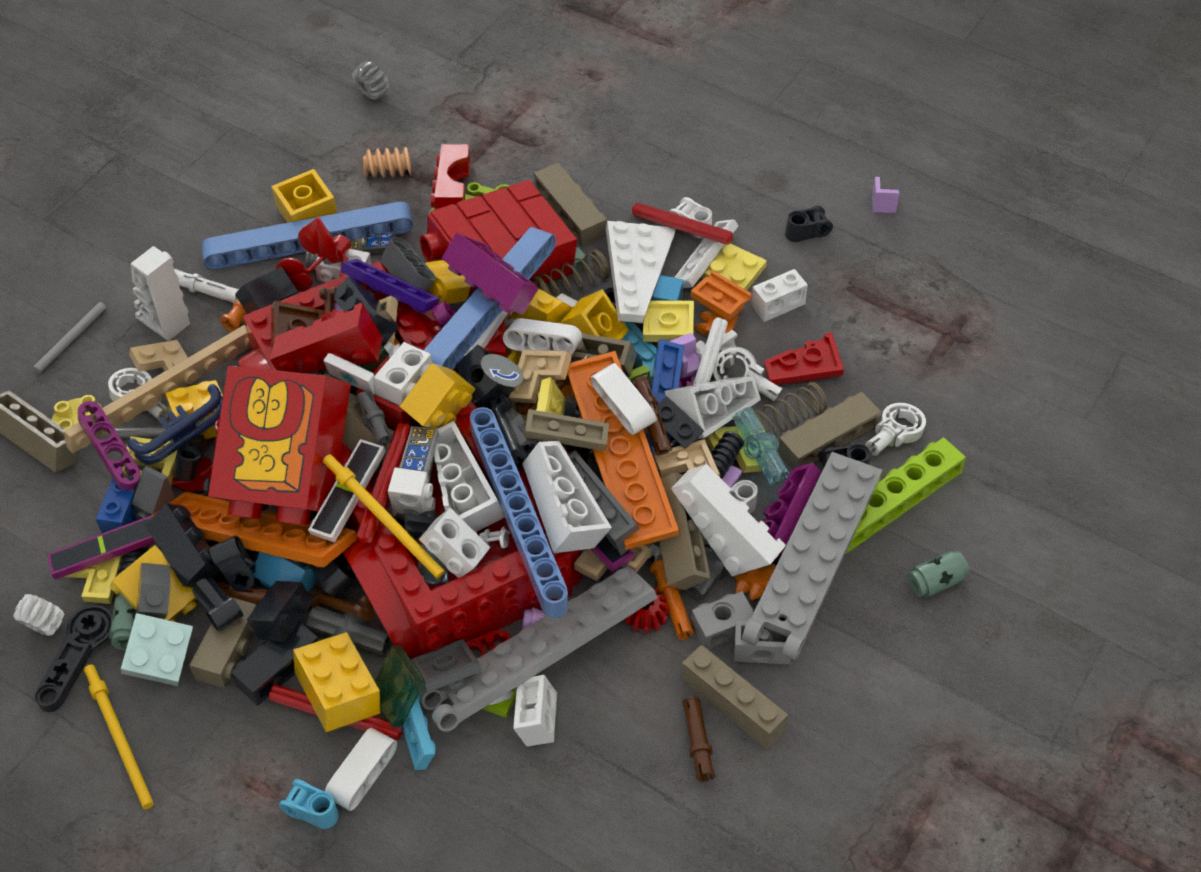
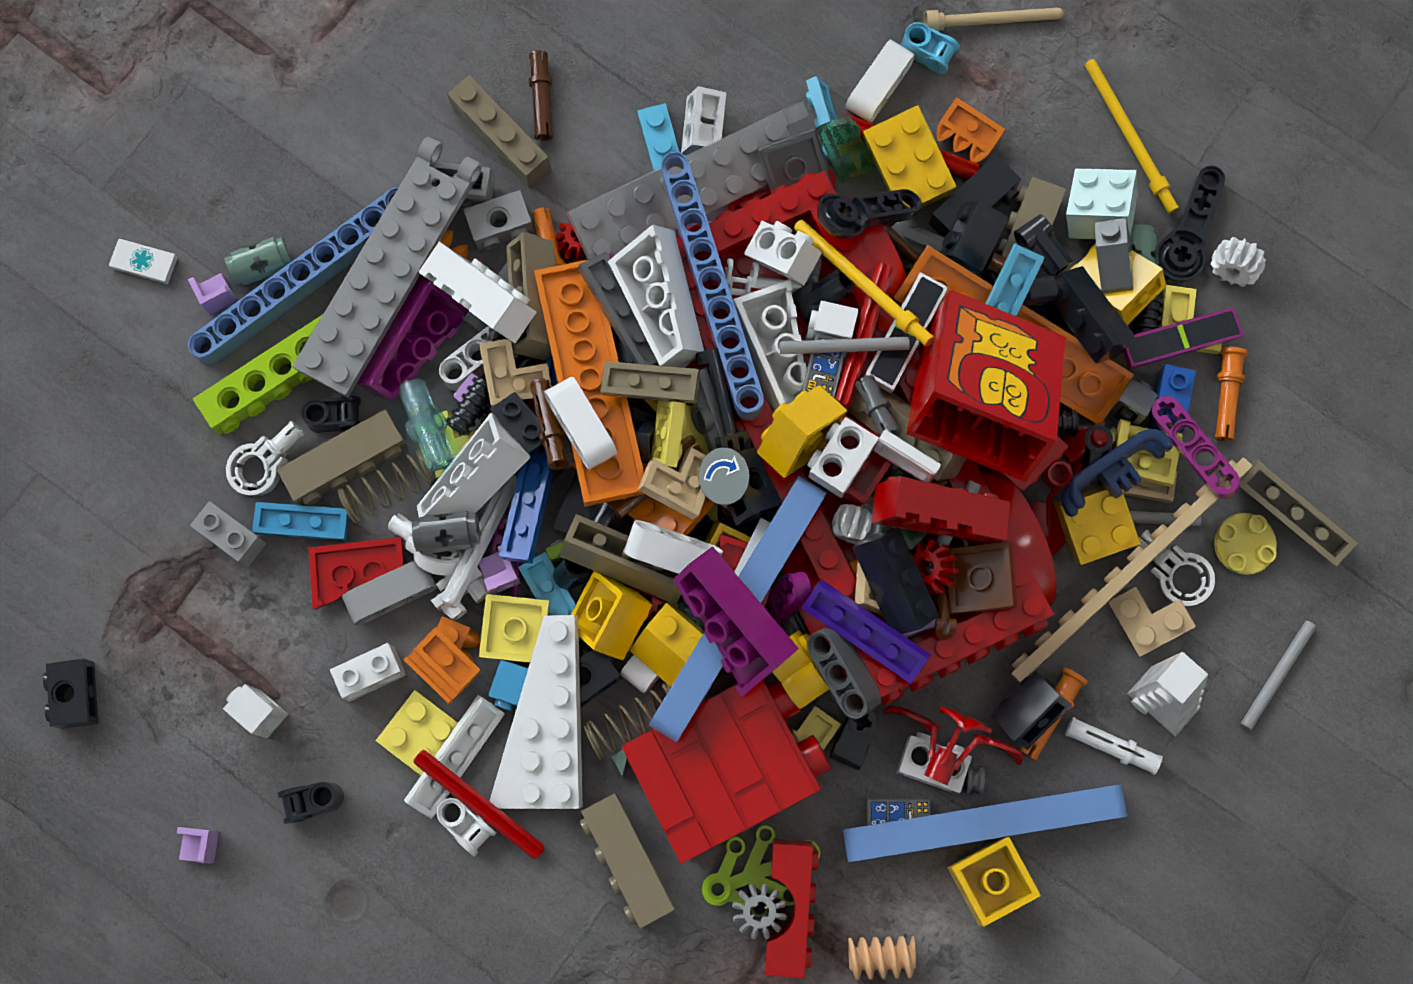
camera: 175 degrees left, 25 degrees up
(65, 530) = (1230, 380): none -> orange pin
(251, 535) = (1015, 280): none -> medium azure plate
(275, 728) = (970, 128): none -> orange plate
(299, 833) = (939, 21): none -> tan piece
(378, 589) = (849, 217): none -> black beam
(400, 461) = (844, 345): none -> light grey bar
(475, 175) = (765, 920): none -> light grey gear
(575, 700) = (657, 133): none -> medium azure plate
(739, 361) = (461, 528): none -> dark grey piece
(775, 342) = (388, 592): none -> light grey beam
(839, 388) = (300, 521): none -> dark azure plate
(859, 261) = (254, 710): none -> white brick
(911, 374) = (228, 534): none -> light grey brick
(960, 509) = (287, 279): none -> medium blue beam
(975, 546) = (213, 293): none -> lavender panel
(1005, 273) = (83, 706): none -> black brick
(1045, 575) = (143, 261): none -> white tile

